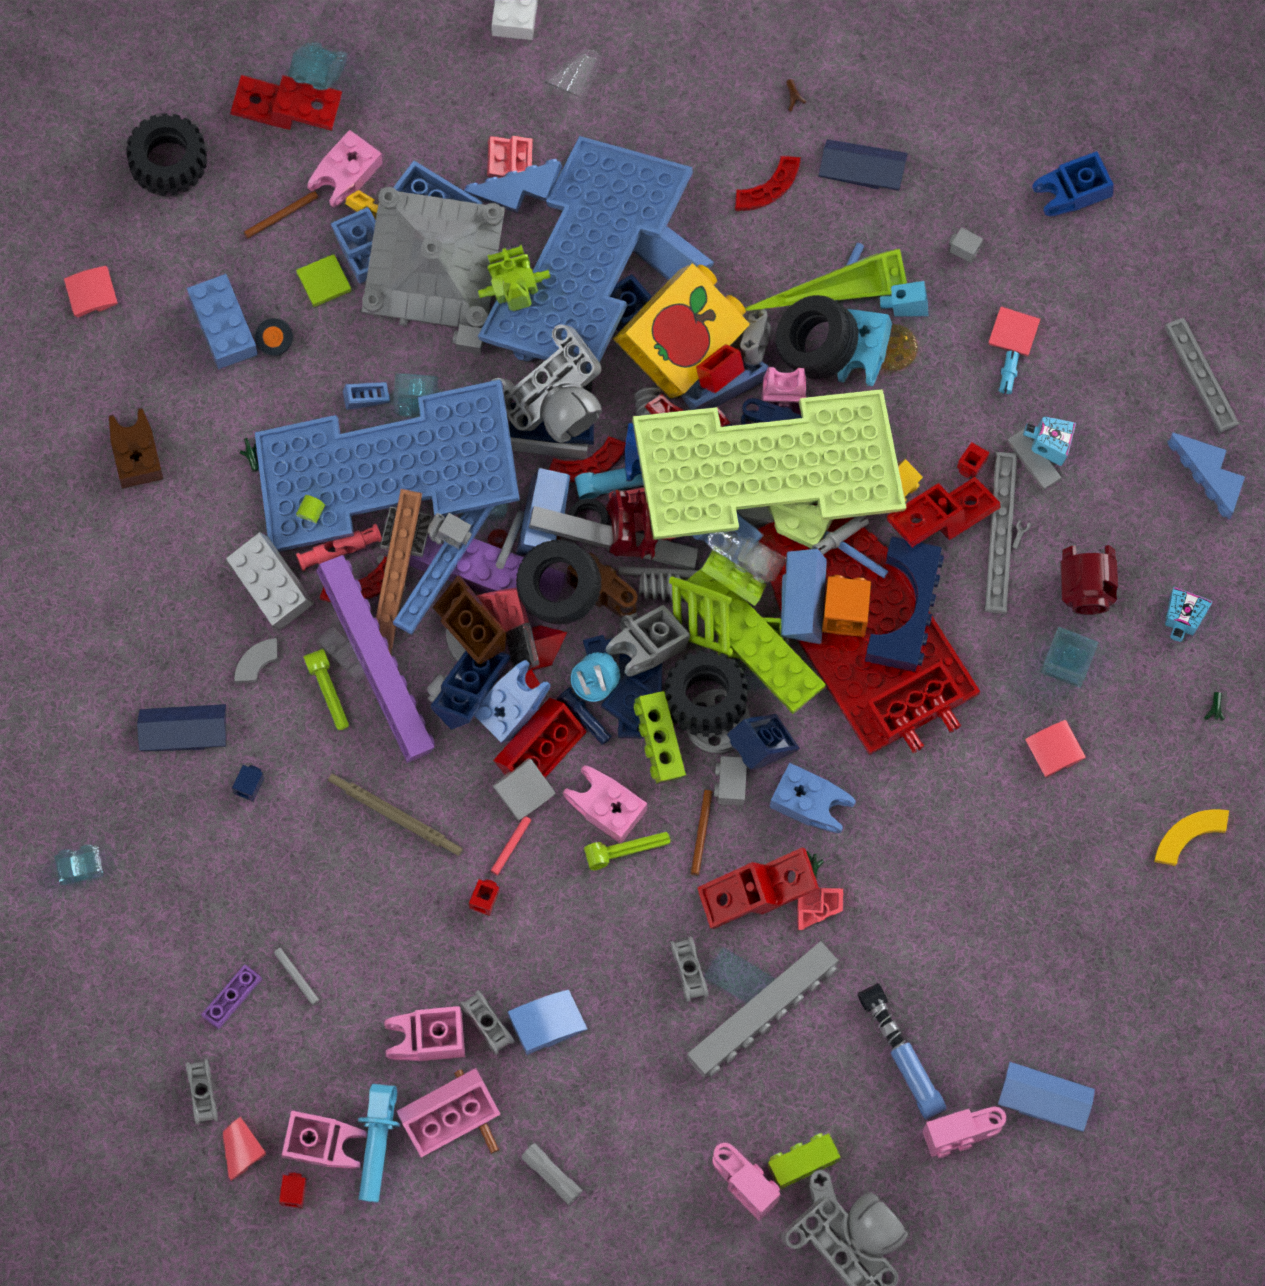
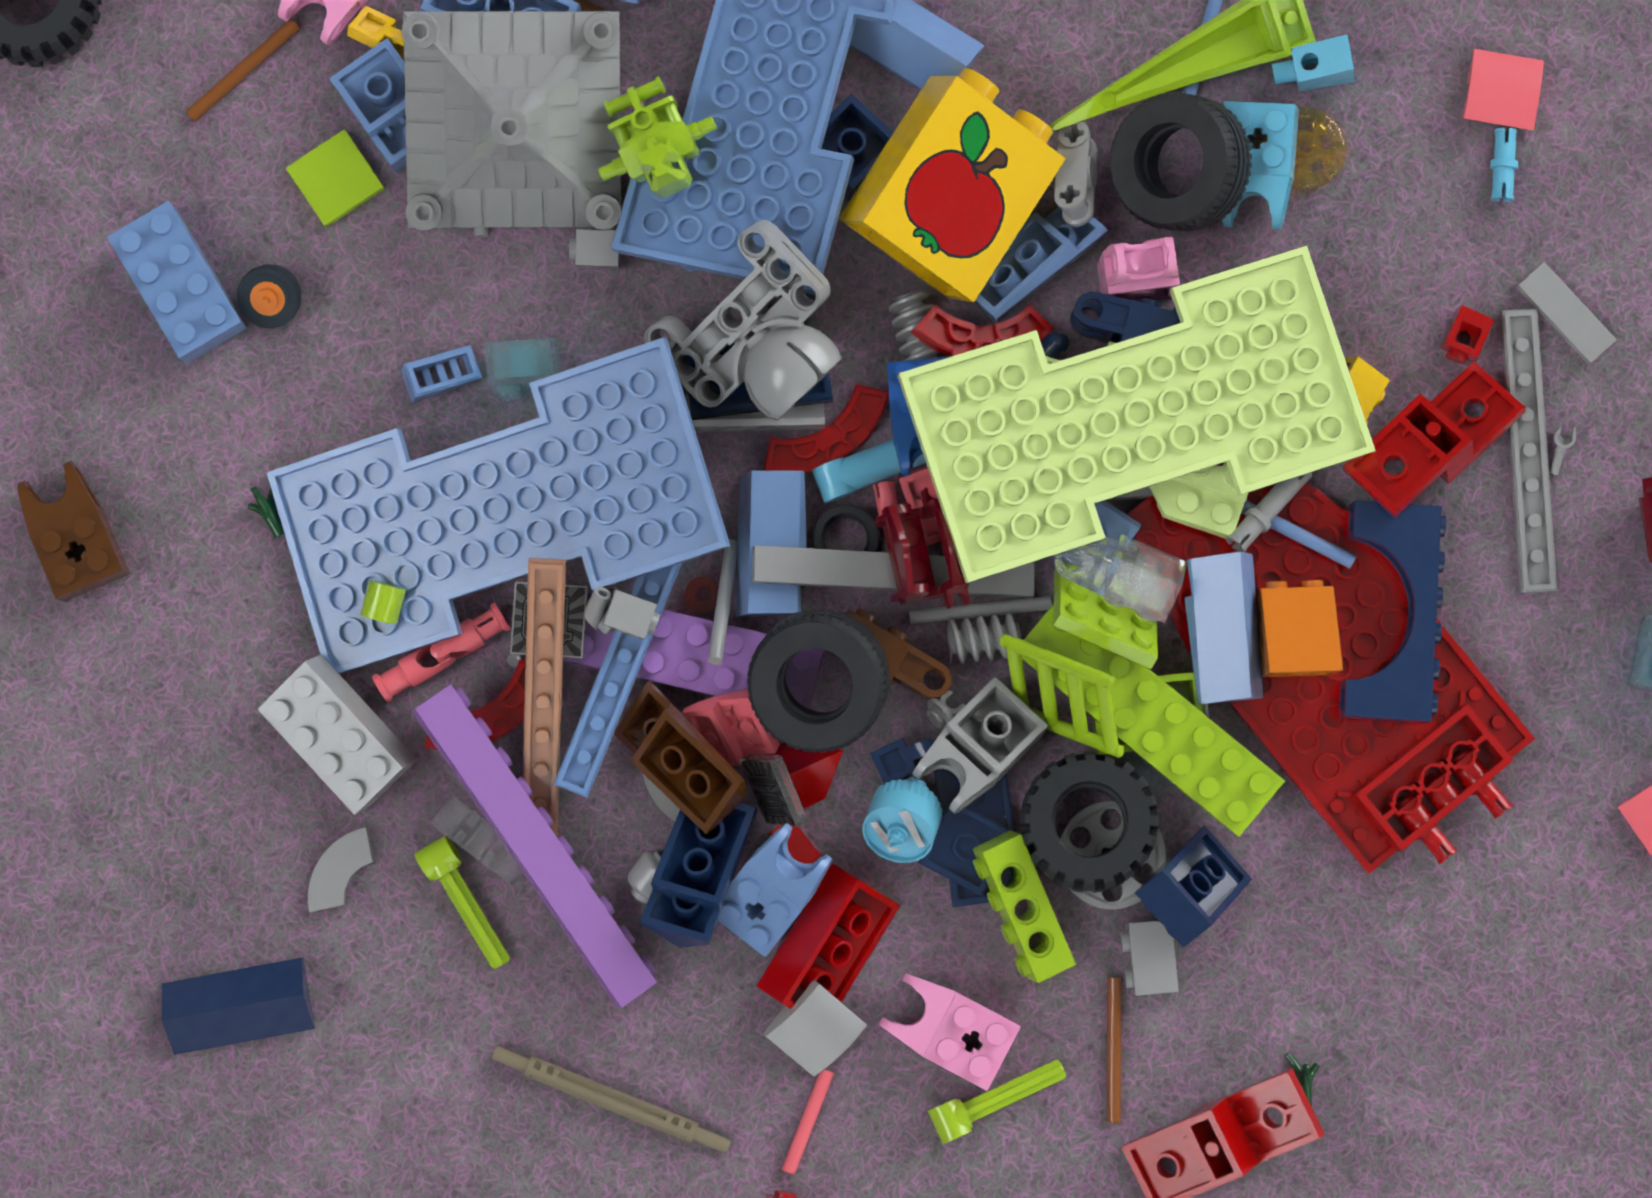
camera: 10 degrees left, 15 degrees up
(248, 782) = (362, 1085): dark blue brick -> none
(579, 709) = (879, 871): dark blue pin -> none
(720, 368) = (1029, 251): red brick -> none
(815, 802) = (1294, 972): medium blue brick -> none
(823, 903) = (1340, 1142): coral slope -> none
(1051, 438) = (1593, 276): medium azure torso -> none

